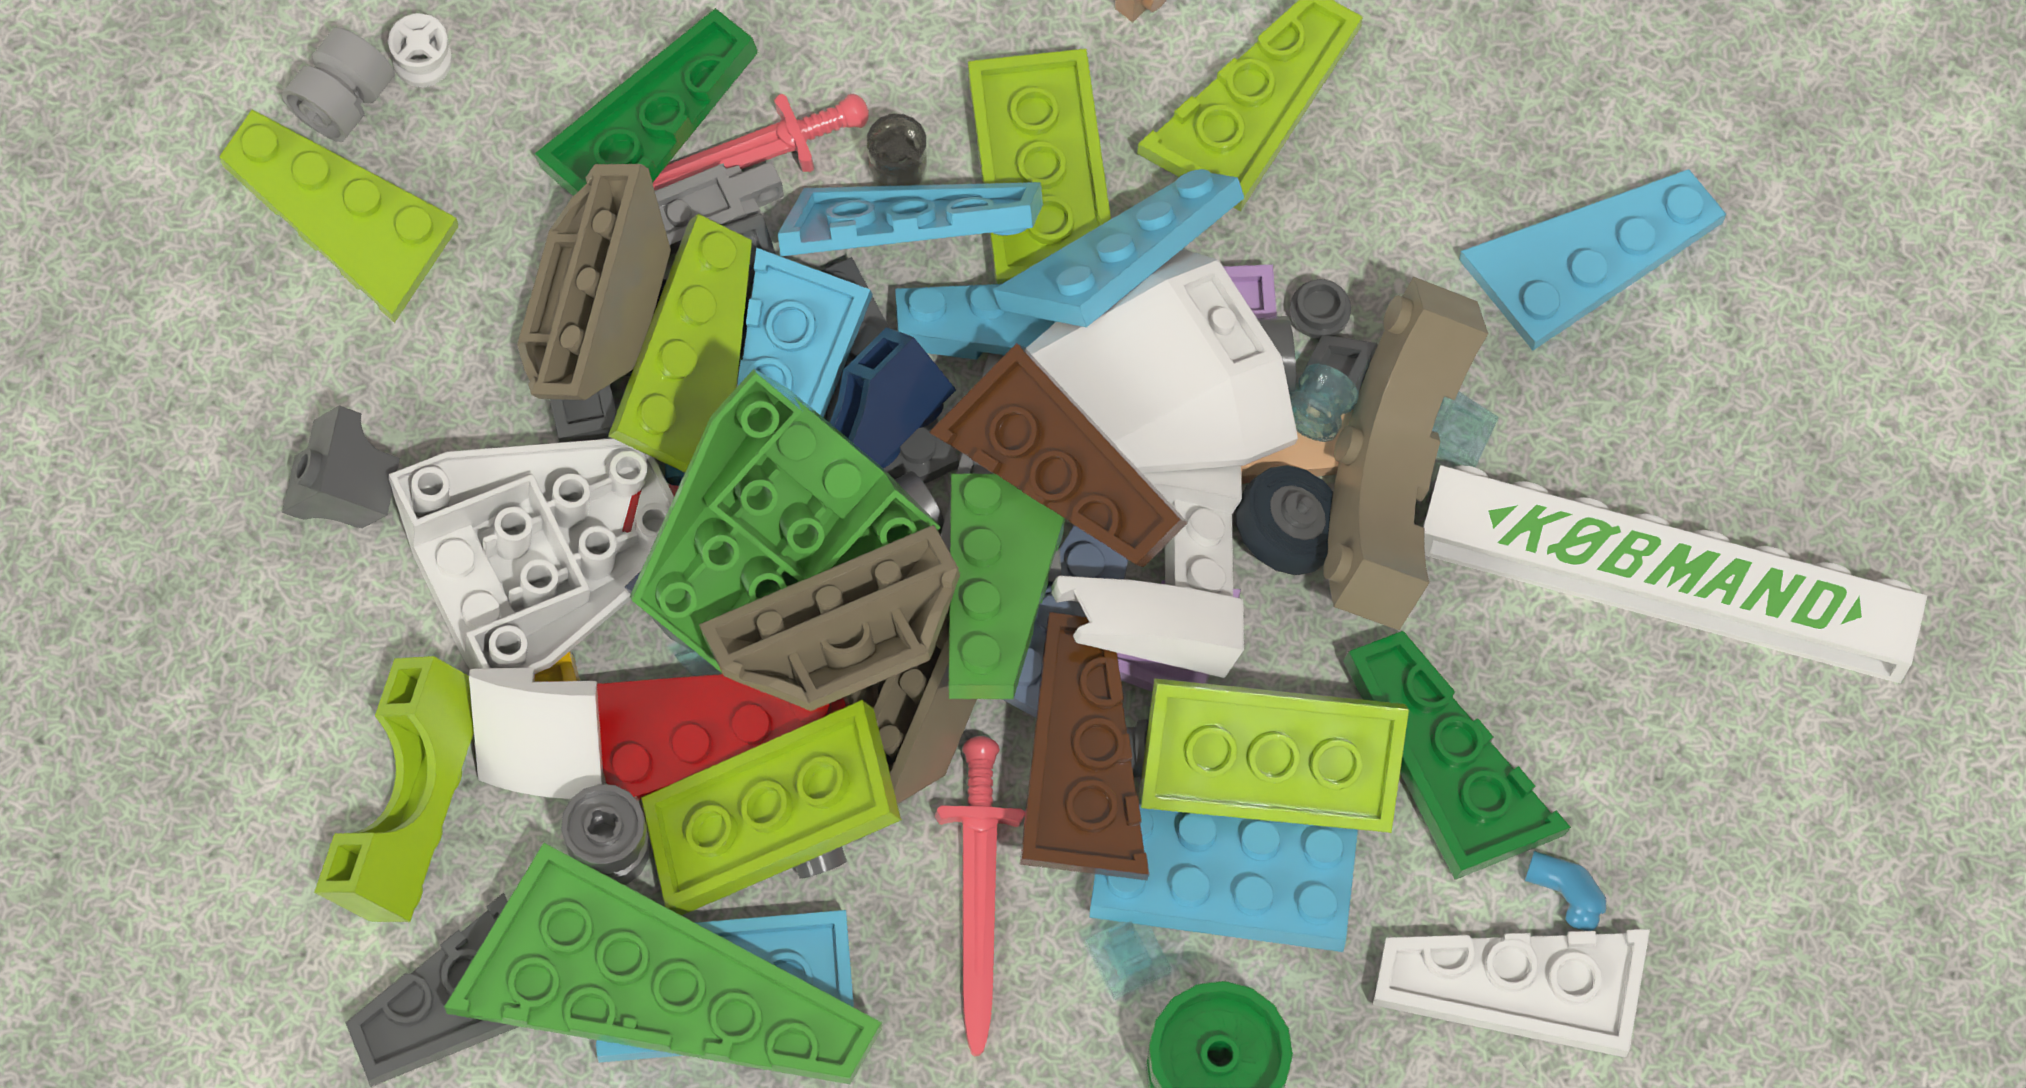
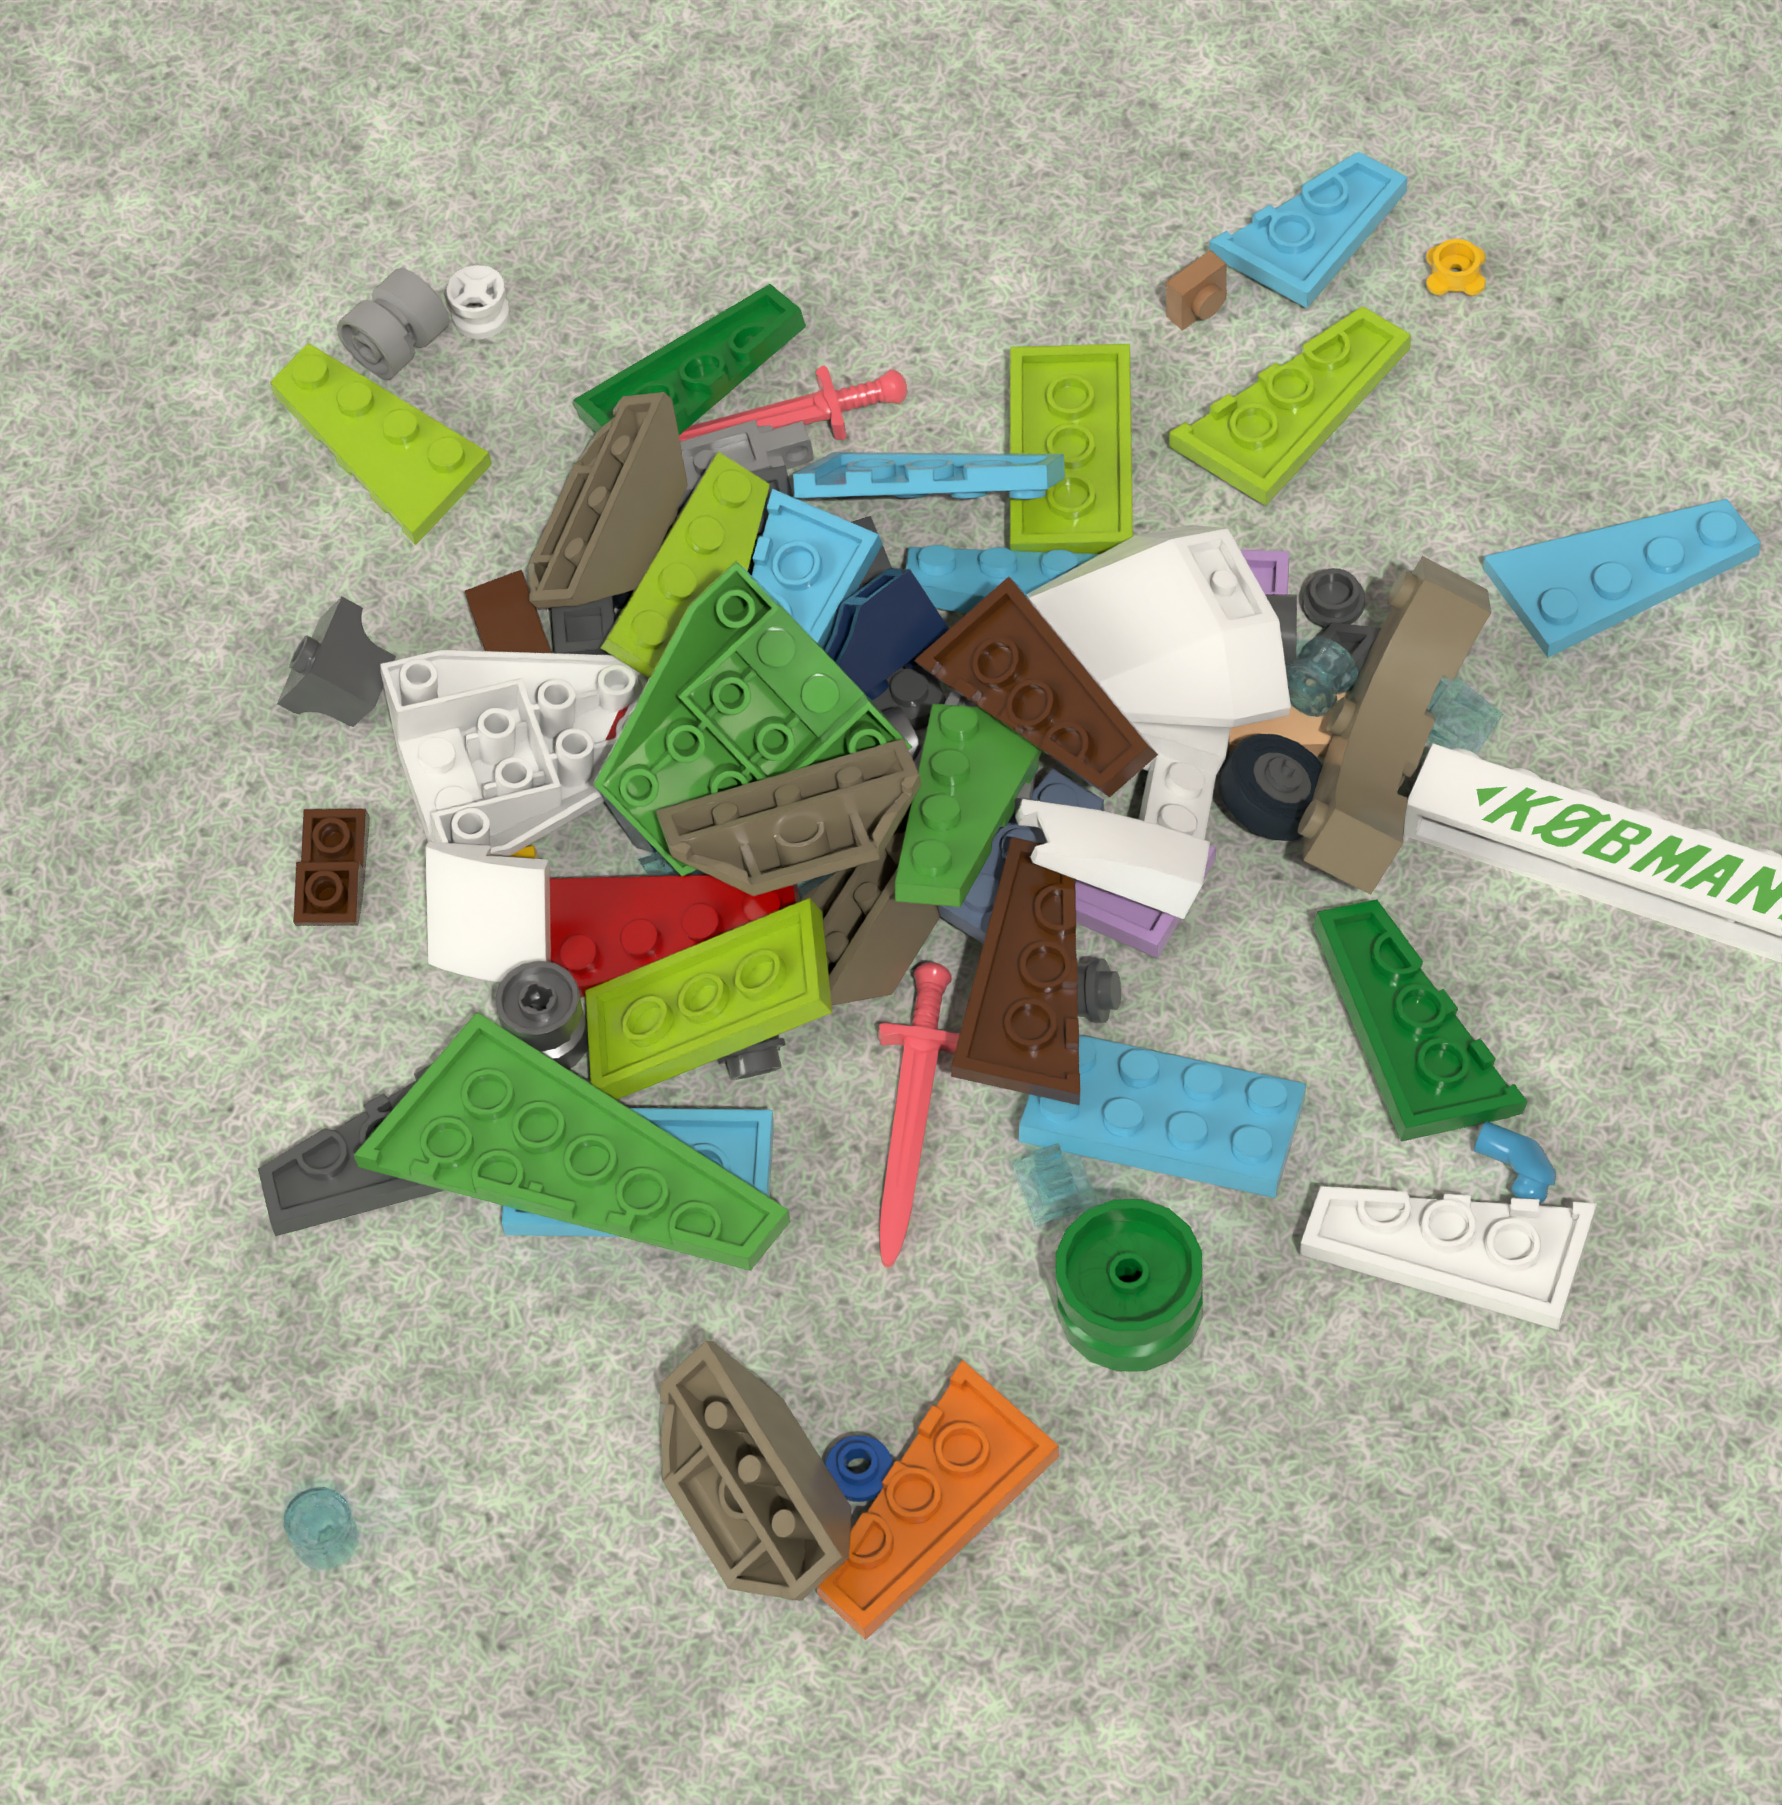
camera: 15 degrees right, 10 degrees down
(360, 671) = (331, 867): none -> reddish brown slope
(430, 729) = (315, 1028): lime arch -> none
(504, 404) = (506, 616): none -> reddish brown slope
(896, 139) = (928, 420): clear smoke wheel -> none
(1120, 254) = (1135, 520): medium azure wing -> none
(1273, 755) = (1225, 998): lime plate -> none

